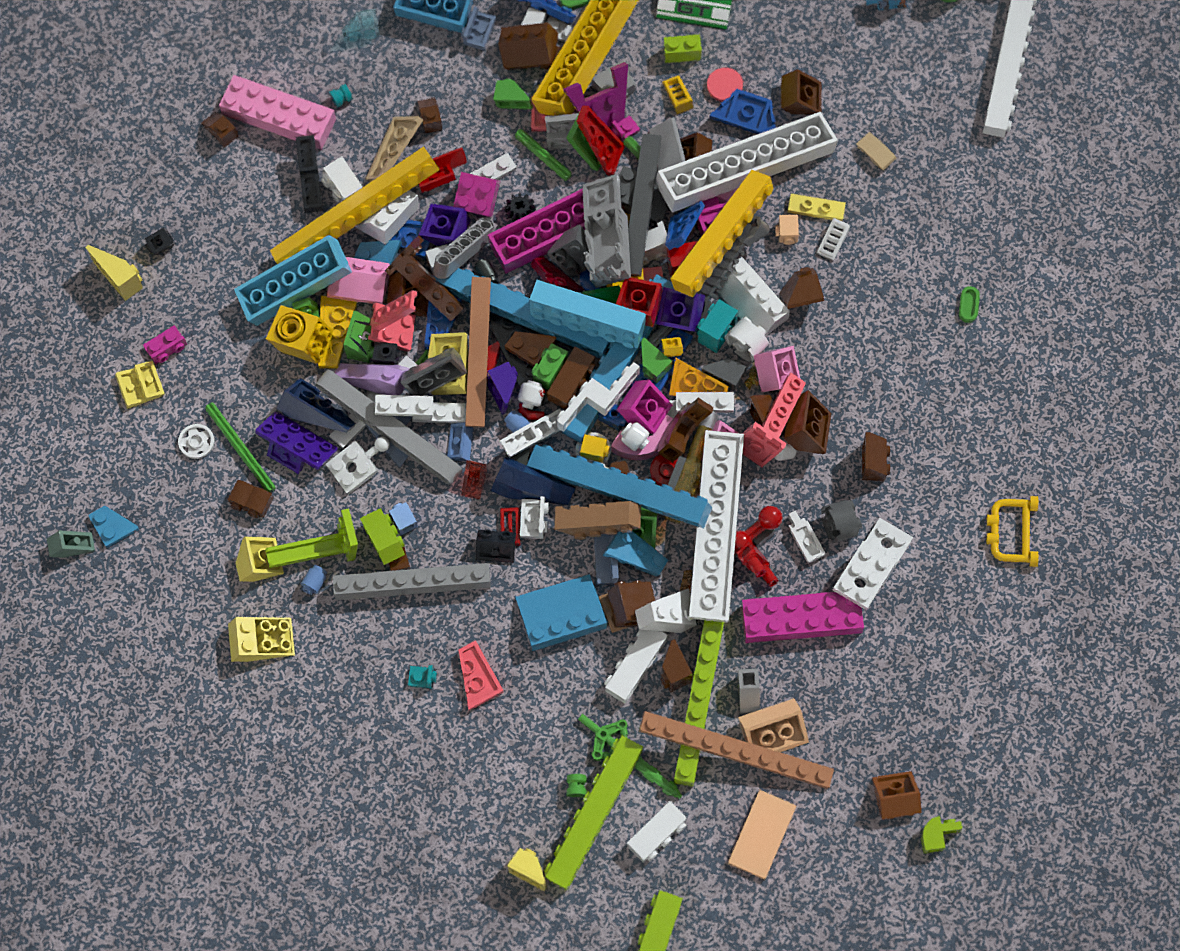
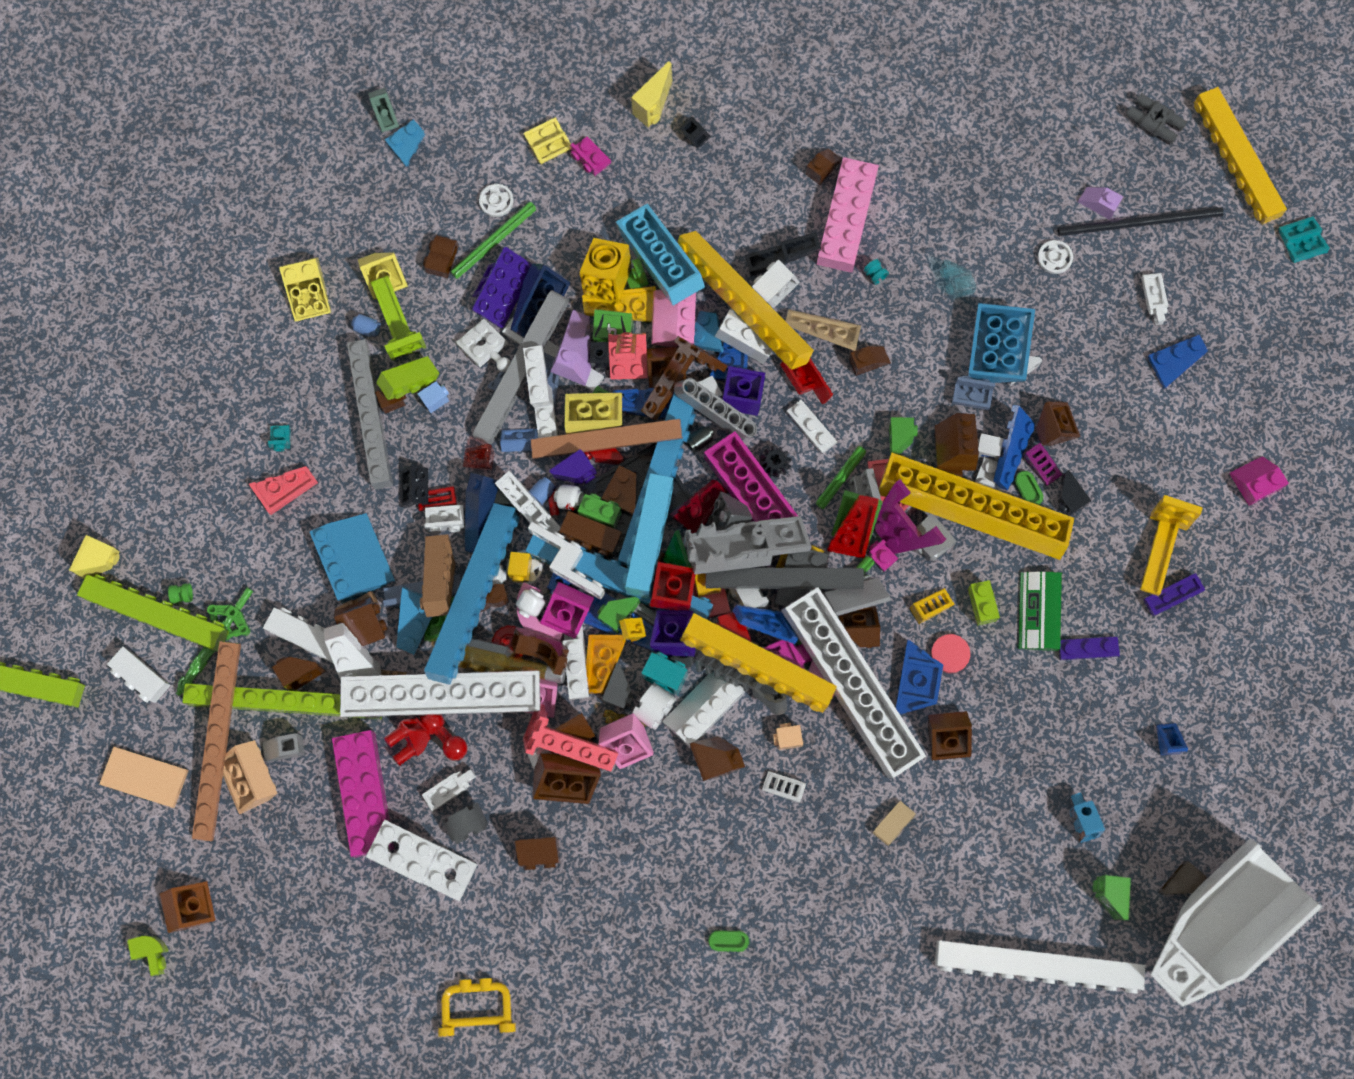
camera: 85 degrees right, 5 degrees up
(434, 373) = (573, 396): dark grey slope -> none
(477, 194) = (781, 415): dark pink brick -> none
(816, 207) = (820, 765): light yellow plate -> none

